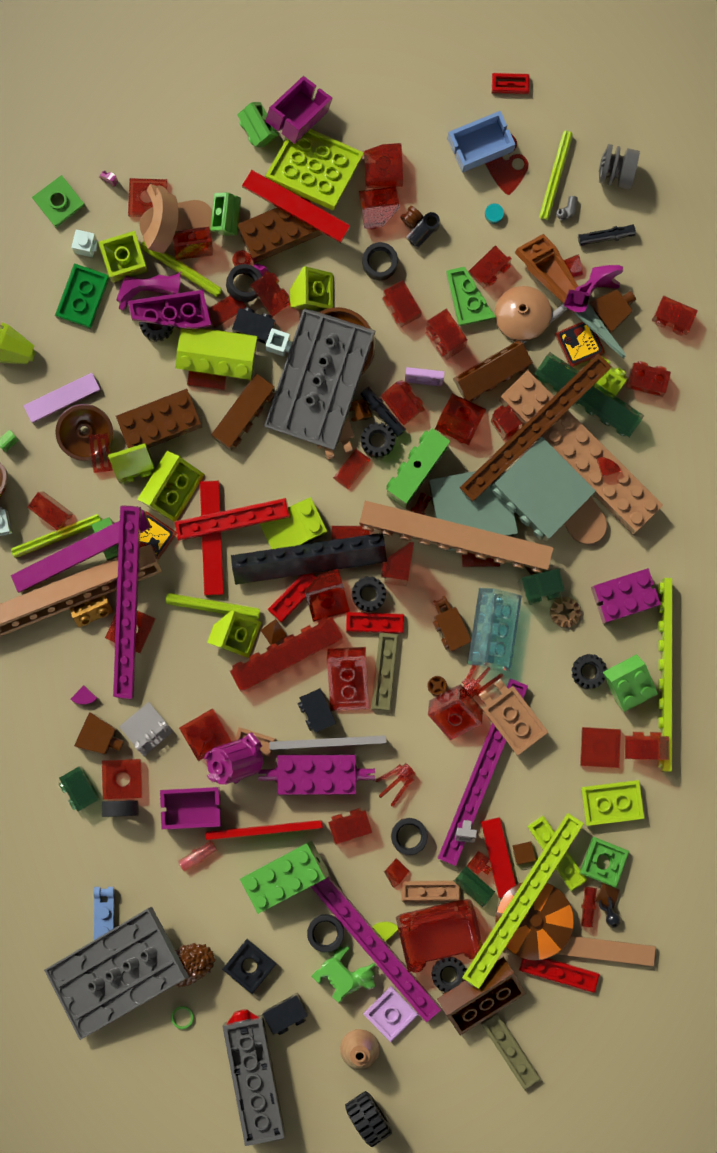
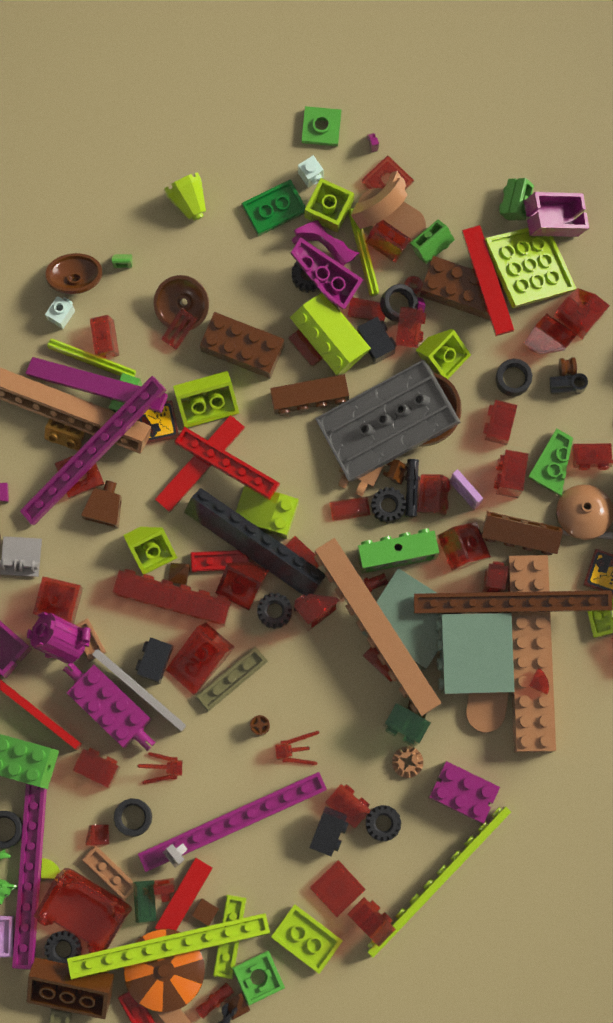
camera: 45 degrees right, 5 degrees down
(62, 398) = (190, 265): lavender tile -> none
(132, 463) = (194, 356): lime slope -> none
(171, 634) = (104, 506): none -> reddish brown torso
(210, 605) = (152, 512): lime axle -> none
(278, 342) = (382, 367): light aqua brick -> none
(374, 622) = (259, 636): red tile -> none
(451, 626) = (312, 691): reddish brown brick -> none
(455, 712) = (254, 757): clear red slope -> none
(494, 629) = (341, 723): clear light blue brick -> none
(513, 718) = (292, 803): medium nougat tile -> none
(553, 682) = (345, 802): none -> clear red bracket
(557, 713) = (328, 831): none -> black brick
(596, 400) = (578, 625): clear green brick -> none
(630, 683) = (405, 860): bright green brick -> none

